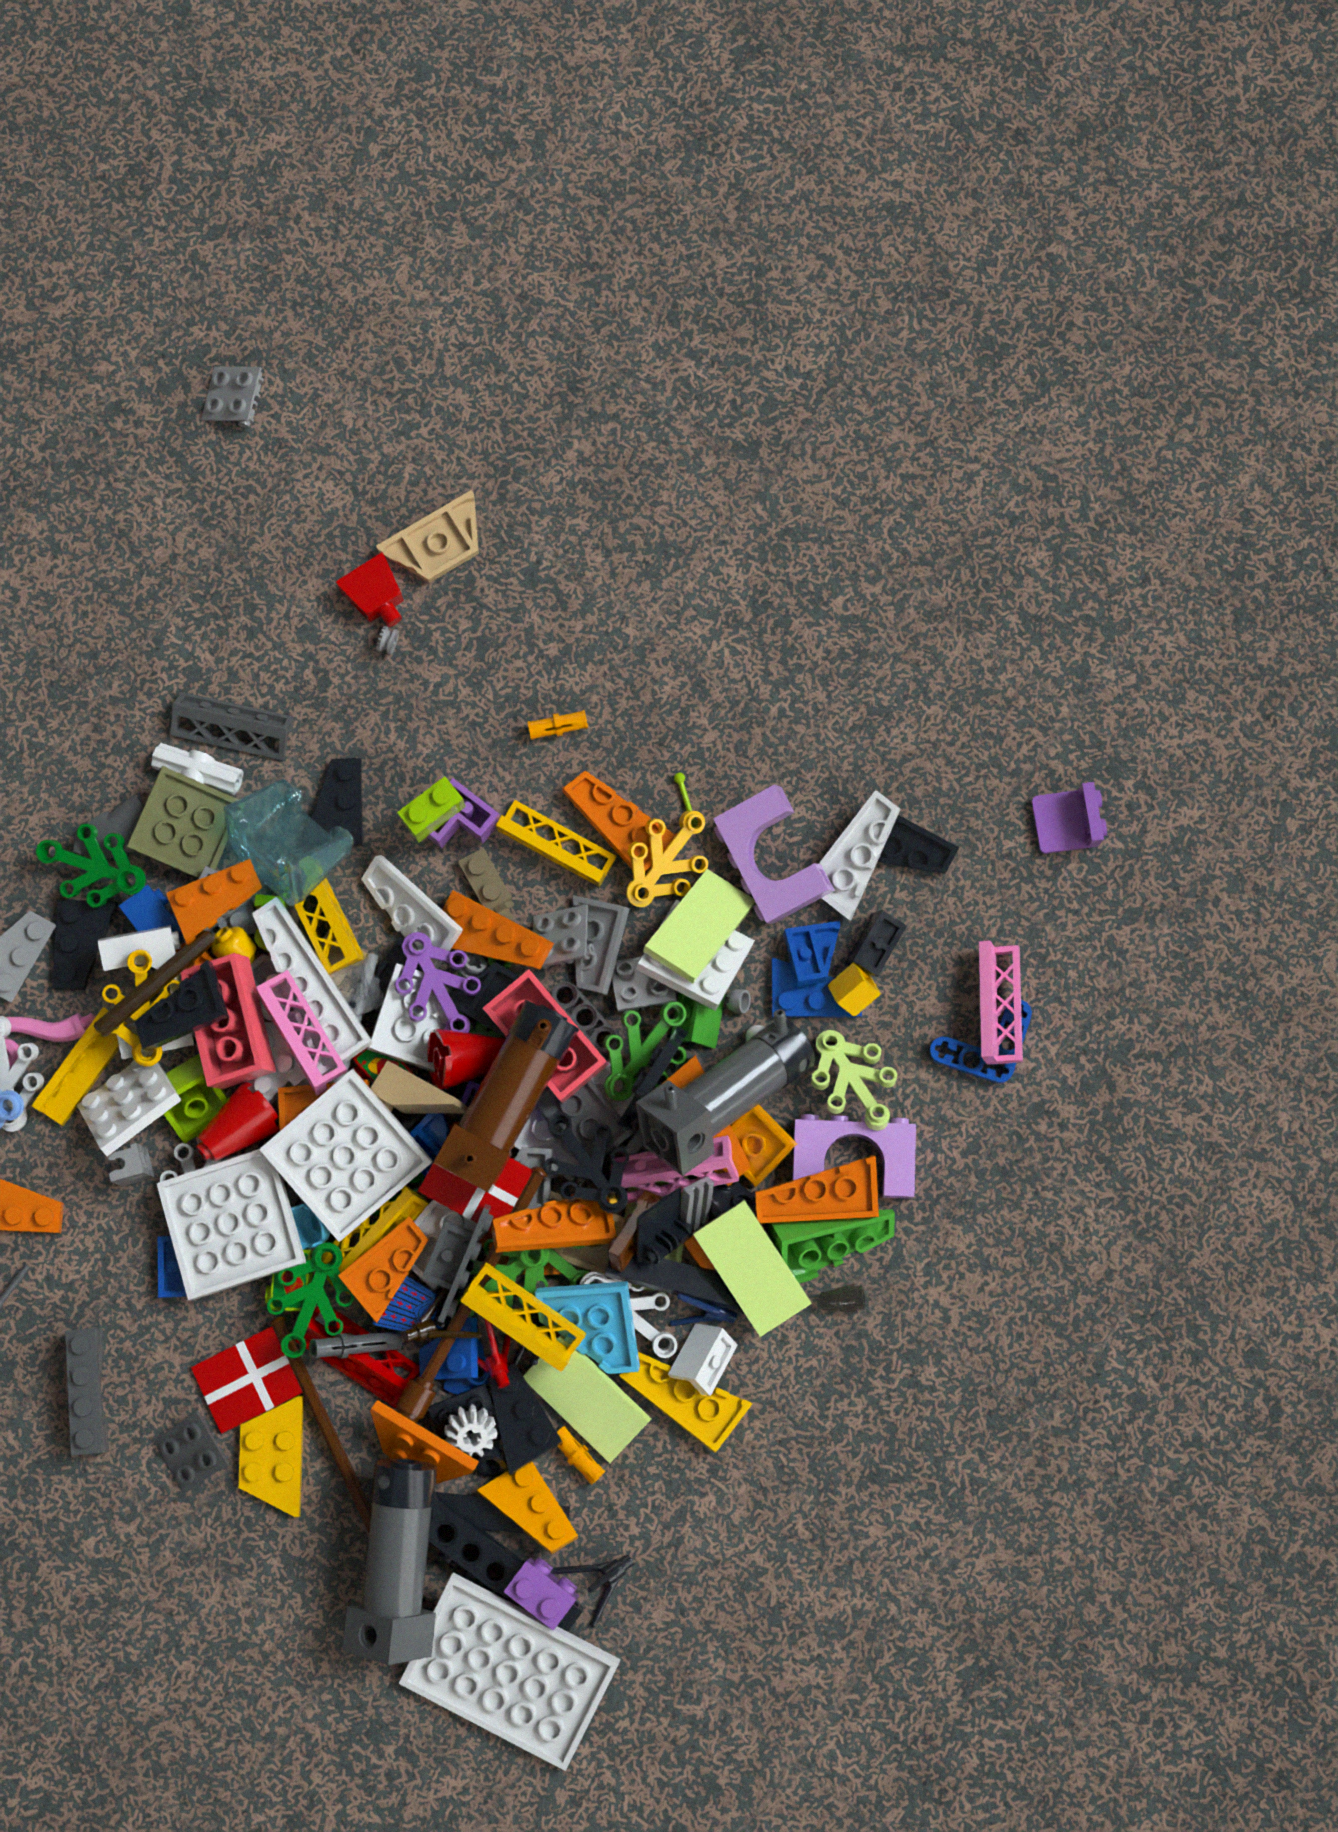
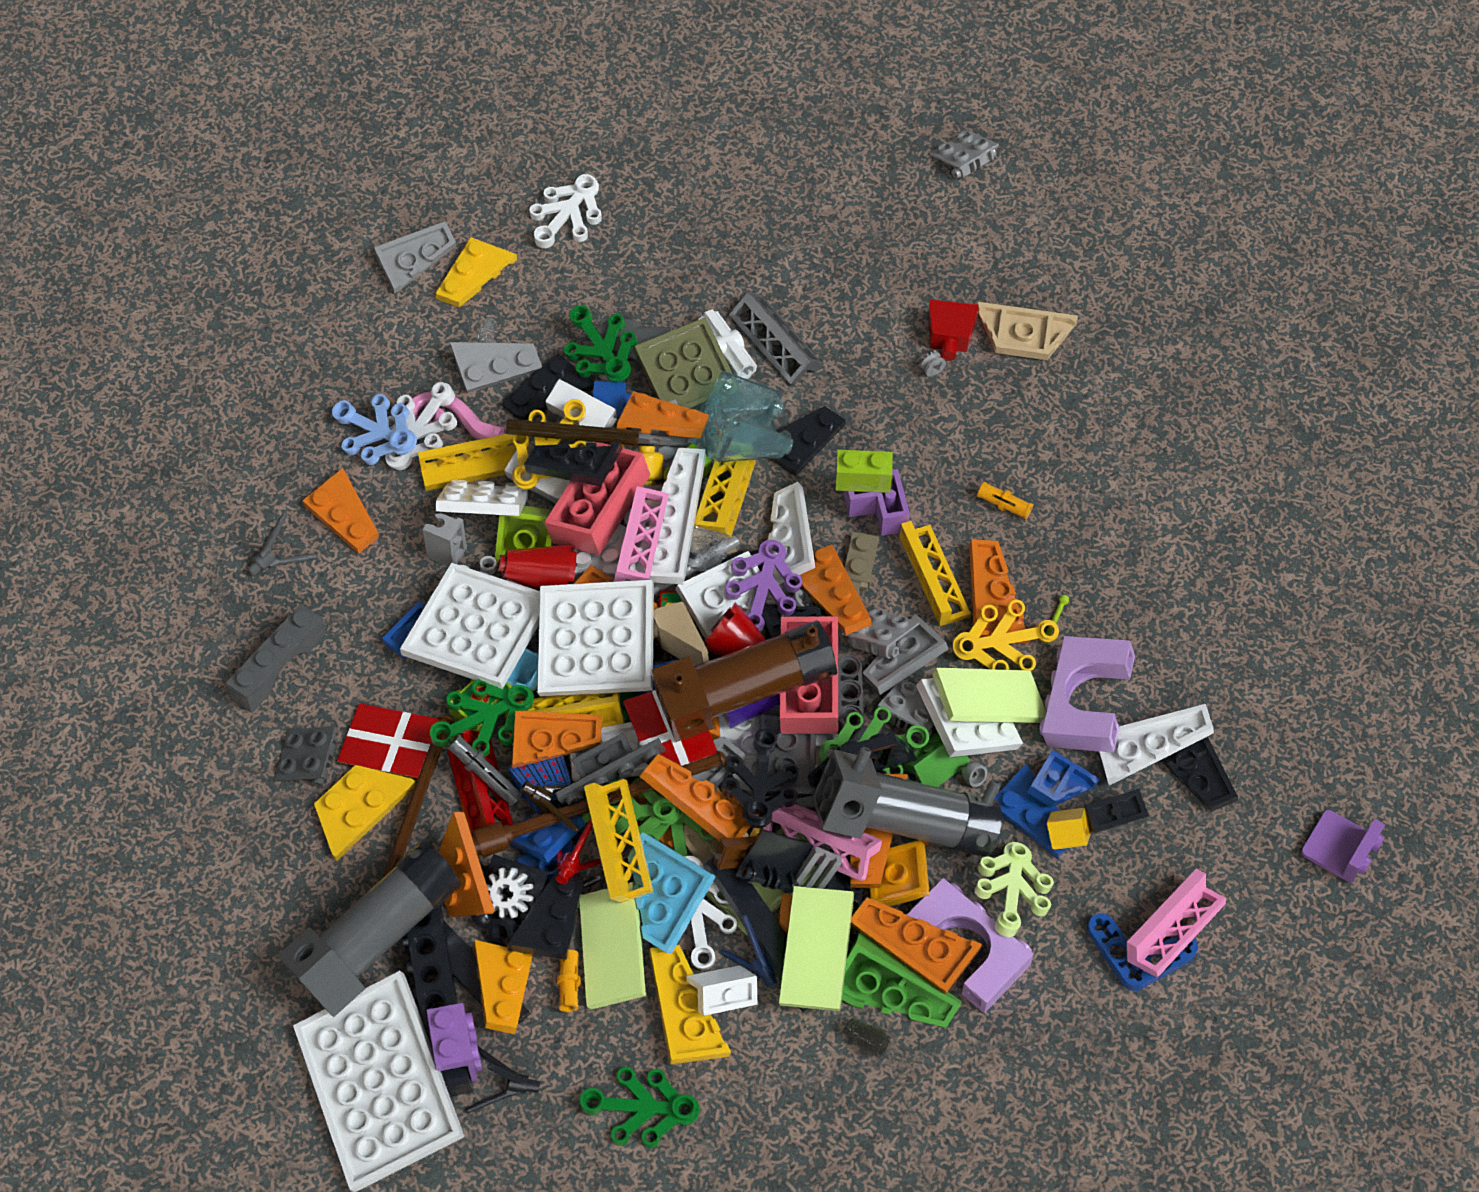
camera: 40 degrees right, 20 degrees down
(726, 1503) = (644, 1107): none -> green plant

